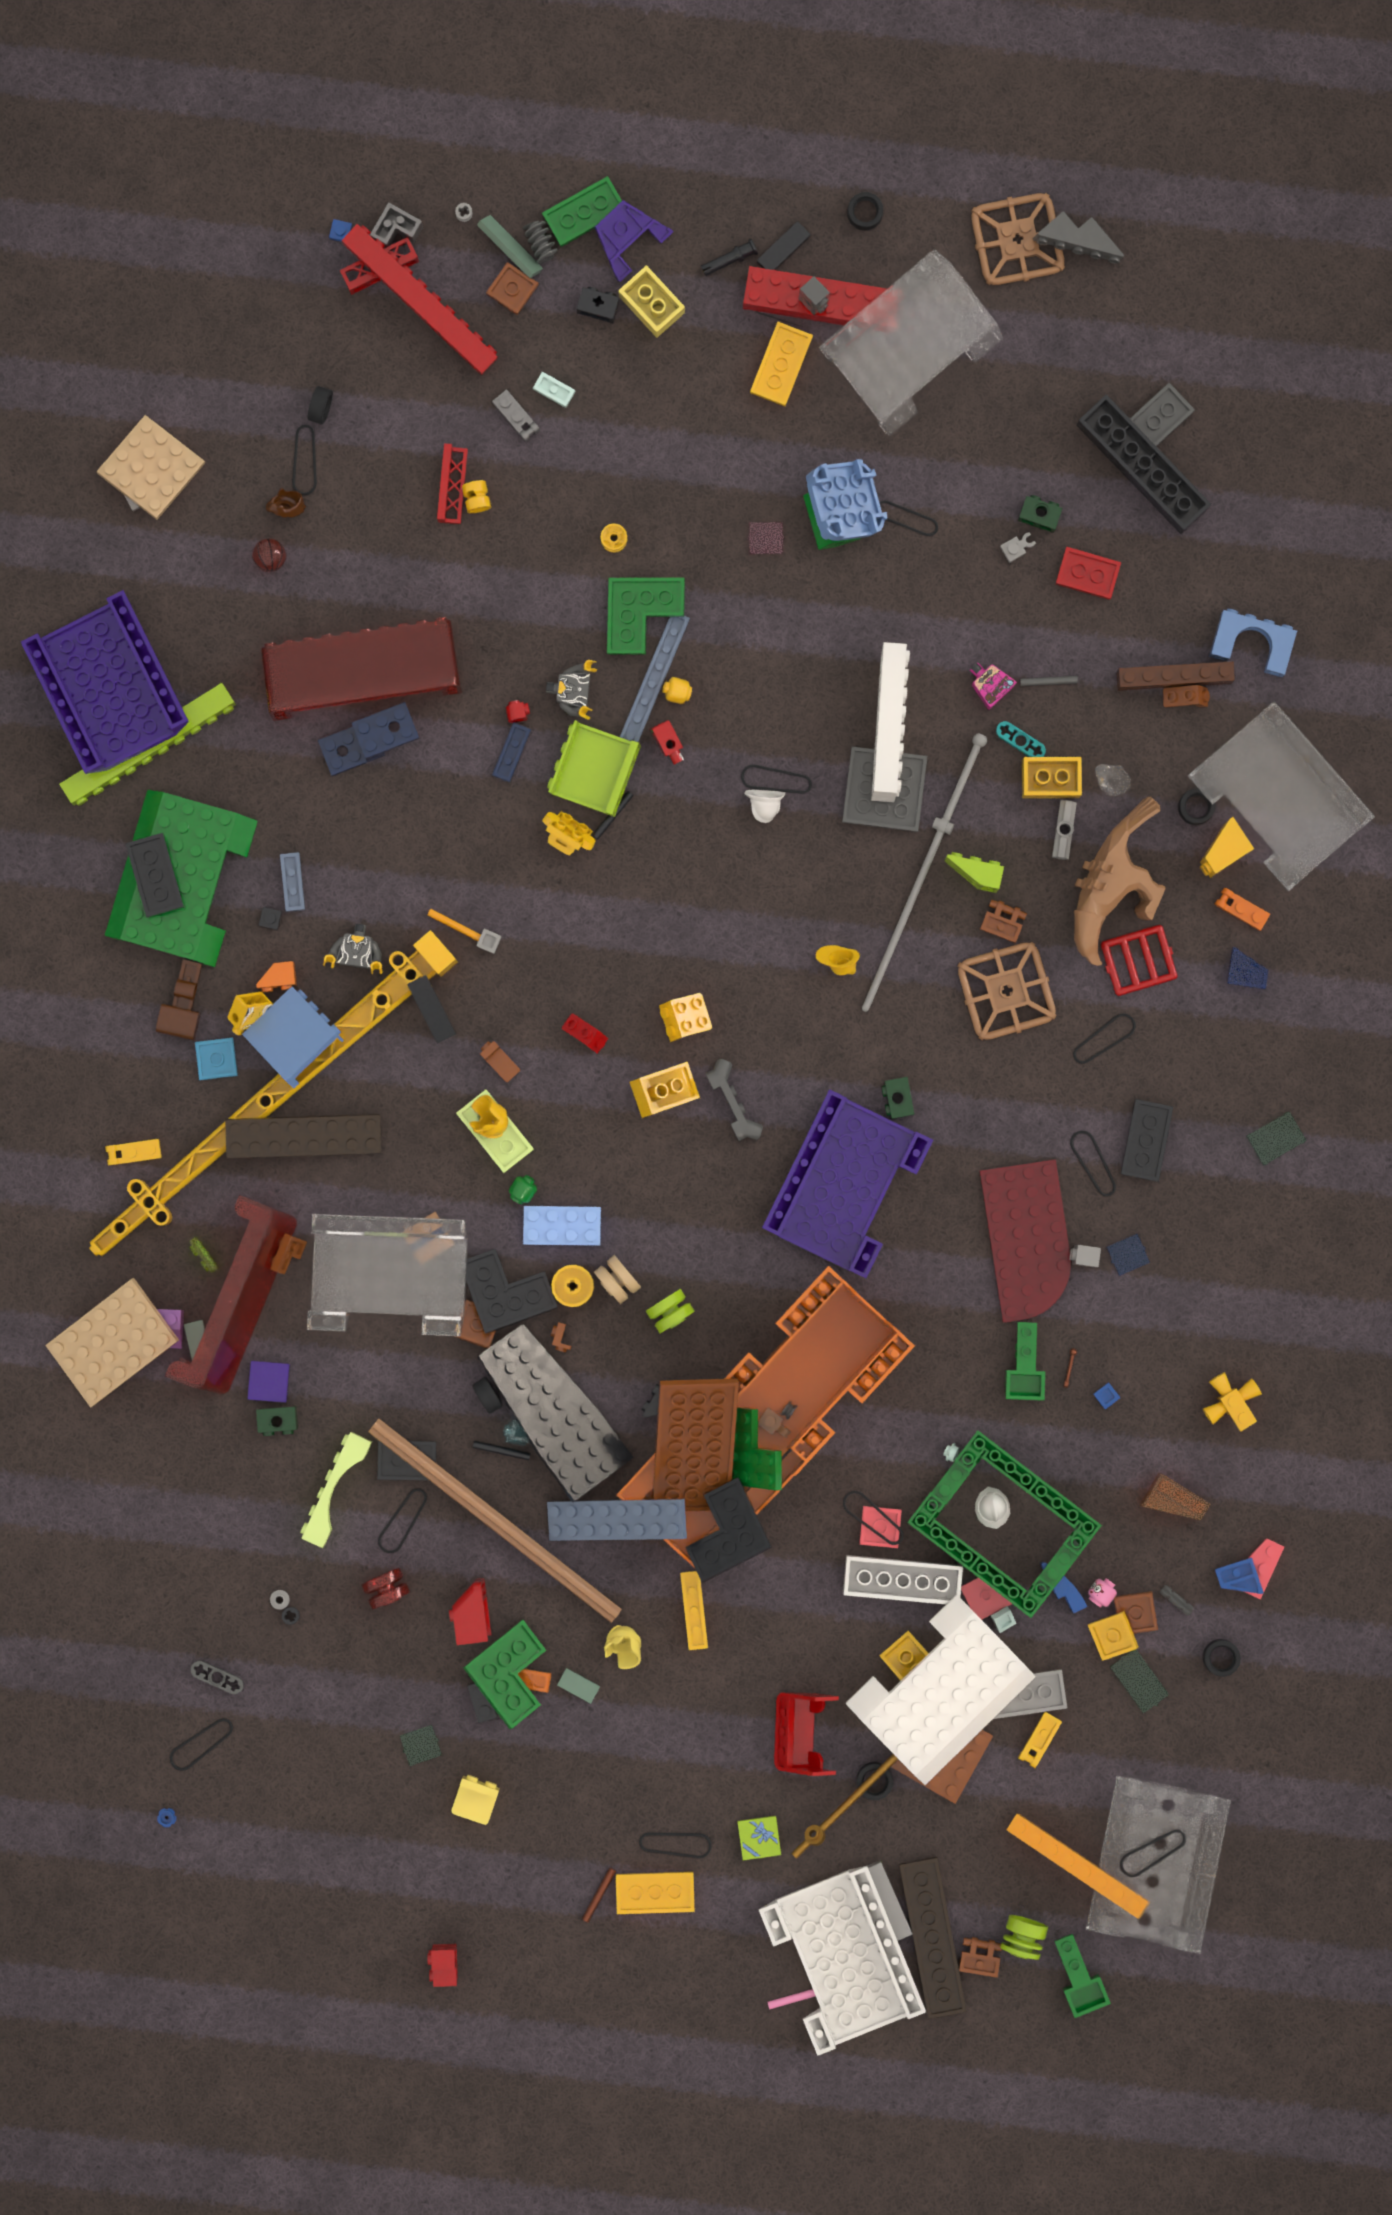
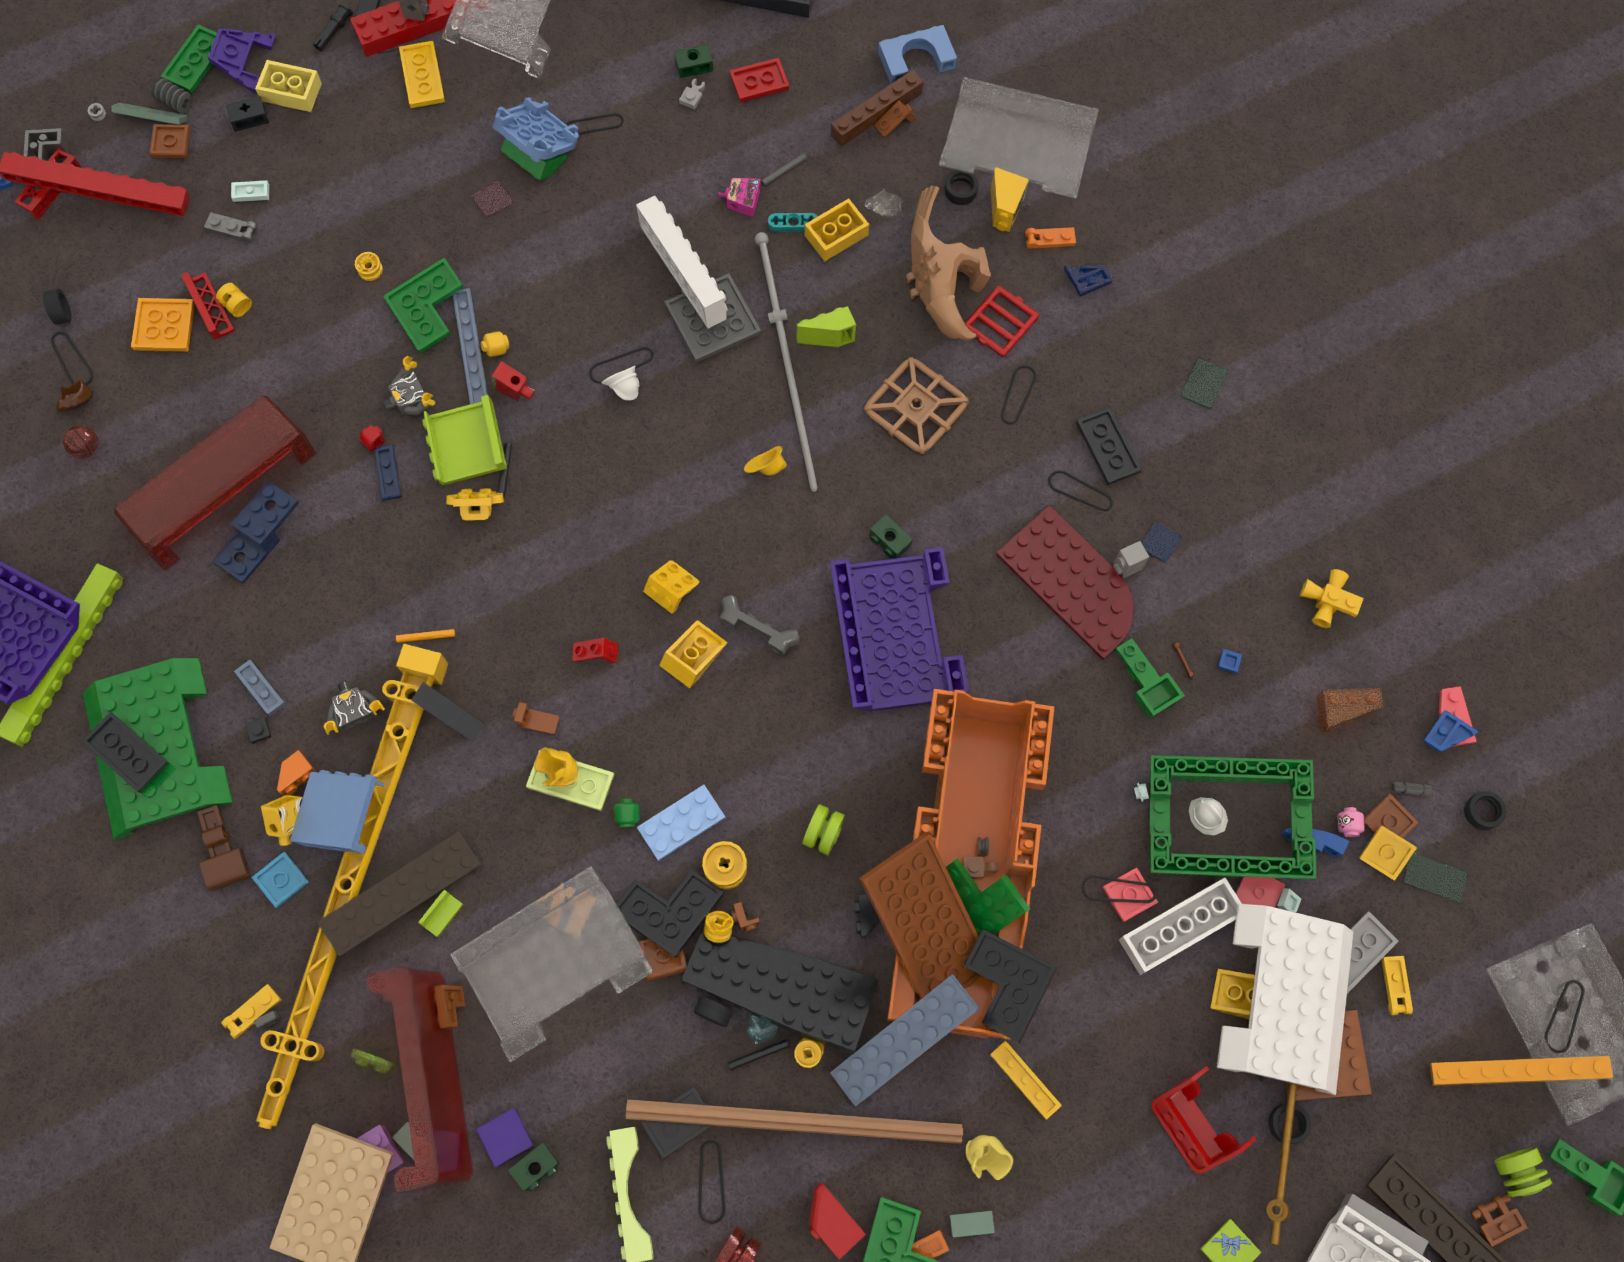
camera: 30 degrees left, 15 degrees down
(142, 1168) = (267, 1020): none -> dark grey tile
(325, 1173) = (441, 913): none -> lime panel
(401, 479) = (163, 324): none -> light orange plate
(489, 941) = (463, 629): light grey plate -> none
(531, 1327) = (718, 926): none -> yellow wheel
(539, 1477) = (808, 1052): none -> yellow wheel
(617, 1279) = (760, 832): tan wheel -> none
(1001, 926) = (876, 360): dark orange plate -> none
(1063, 842) = (878, 270): light grey piece -> none

